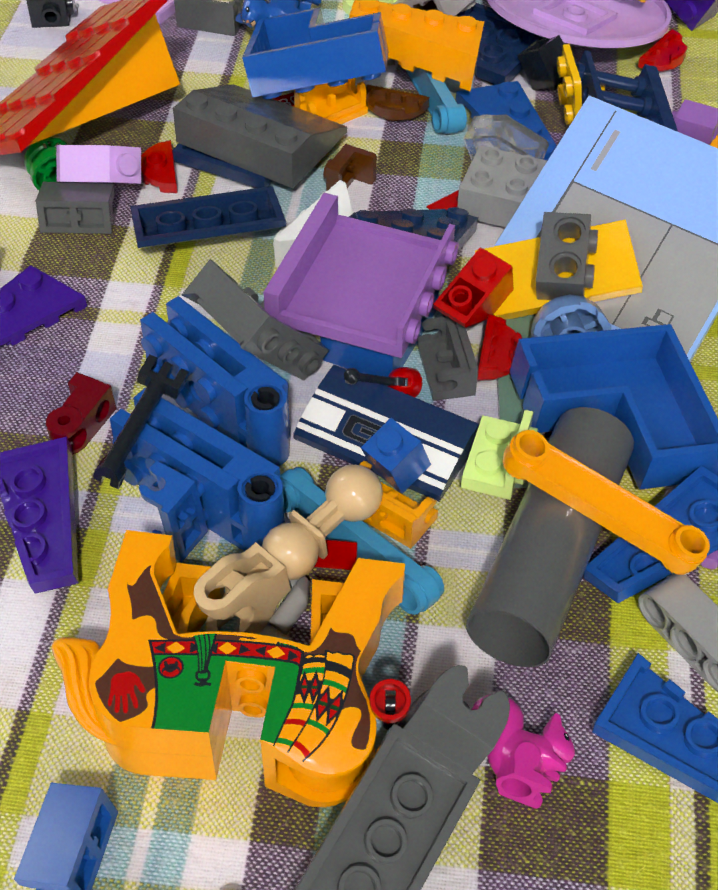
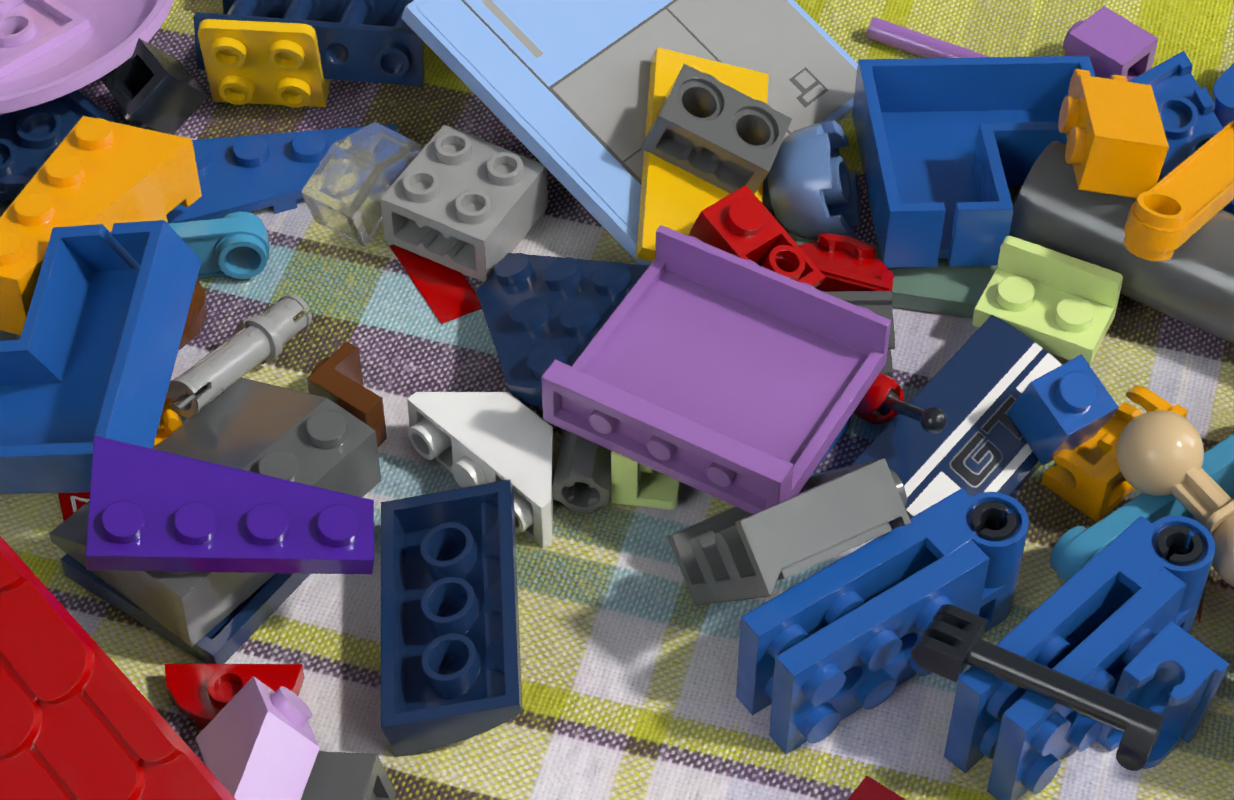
camera: 80 degrees left, 0 degrees up
(211, 102) = (208, 517): none -> dark purple wing
(365, 125) = (255, 342): none -> light grey pin
(622, 434) = (1112, 134): none -> light orange hinge

